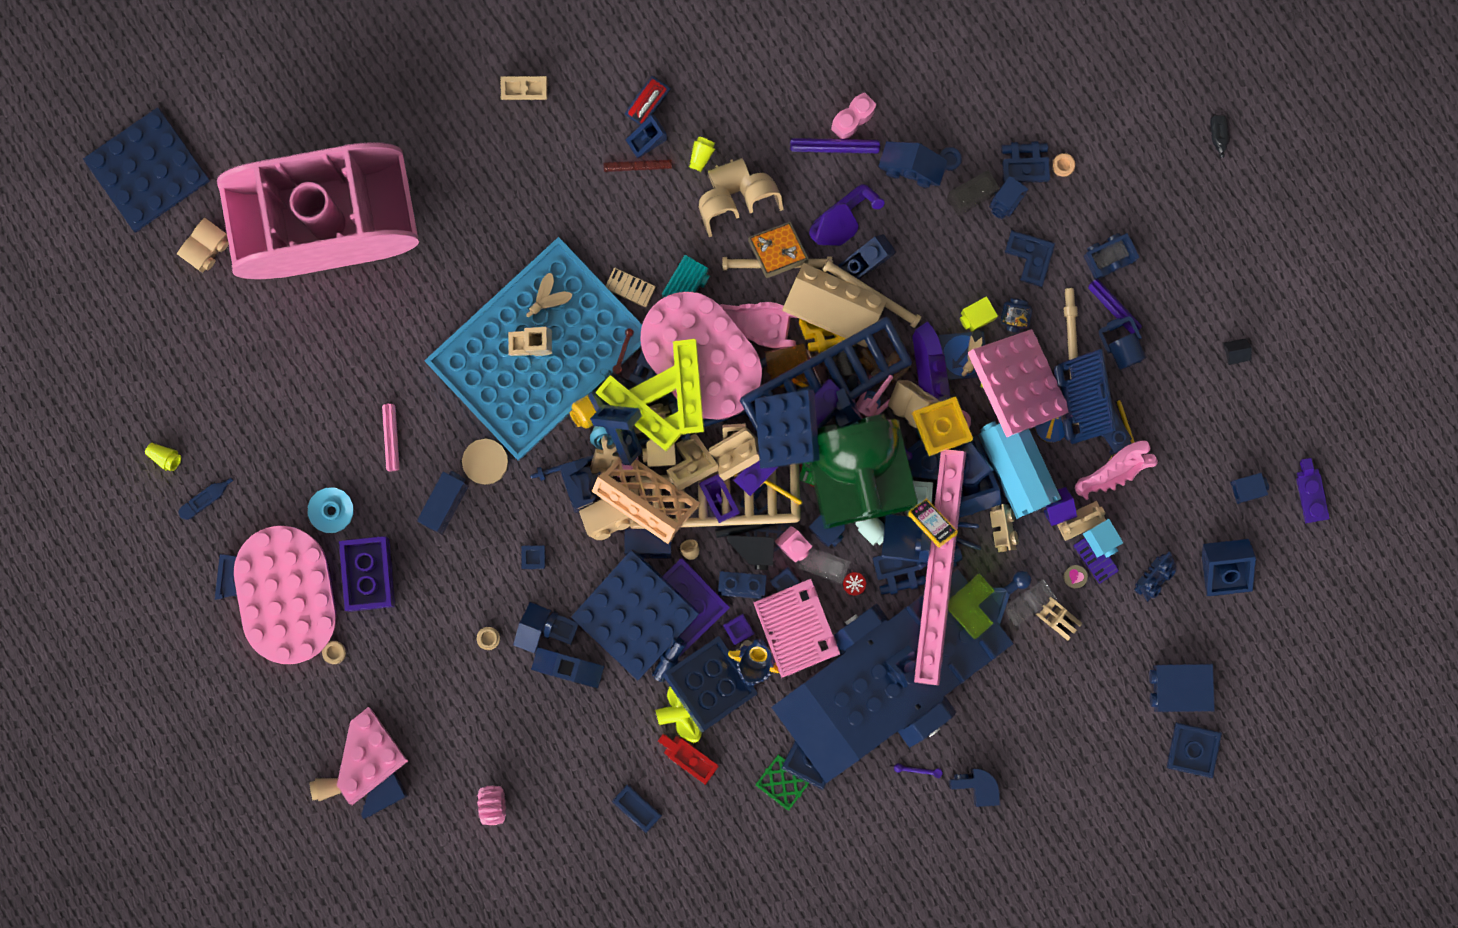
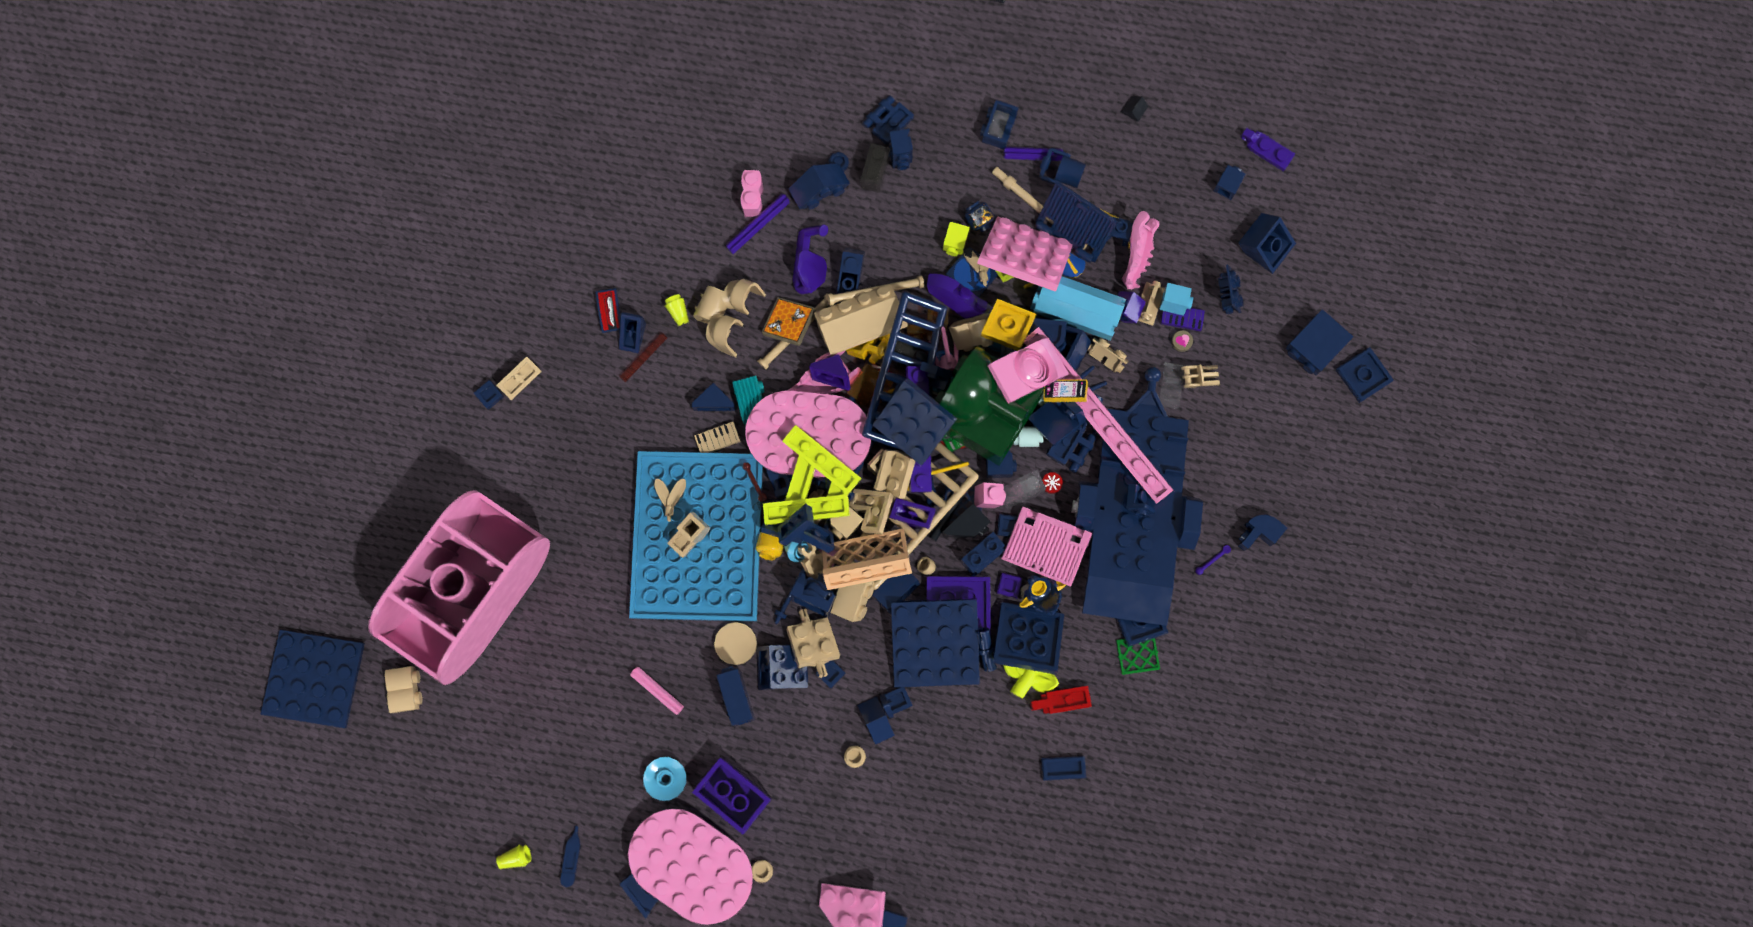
camera: 45 degrees left, 5 degrees down
(489, 77) = (488, 394): none -> dark blue plate
(491, 805) = (969, 863): bright pink gear -> none
(502, 515) = (779, 668): none -> dark blue bracket
(542, 520) = (813, 643): none -> tan plate
(567, 668) = (925, 722): dark blue slope -> none
(656, 253) = (713, 400): none -> dark blue slope
(768, 323) = (830, 372): none -> dark purple slope
(916, 477) = (1027, 370): none -> bright pink slope
(966, 609) = (1137, 425): clear neon green plate -> none
(1037, 256) = (950, 168): dark blue tile -> none
(1063, 165) = (912, 99): light nougat tile -> none

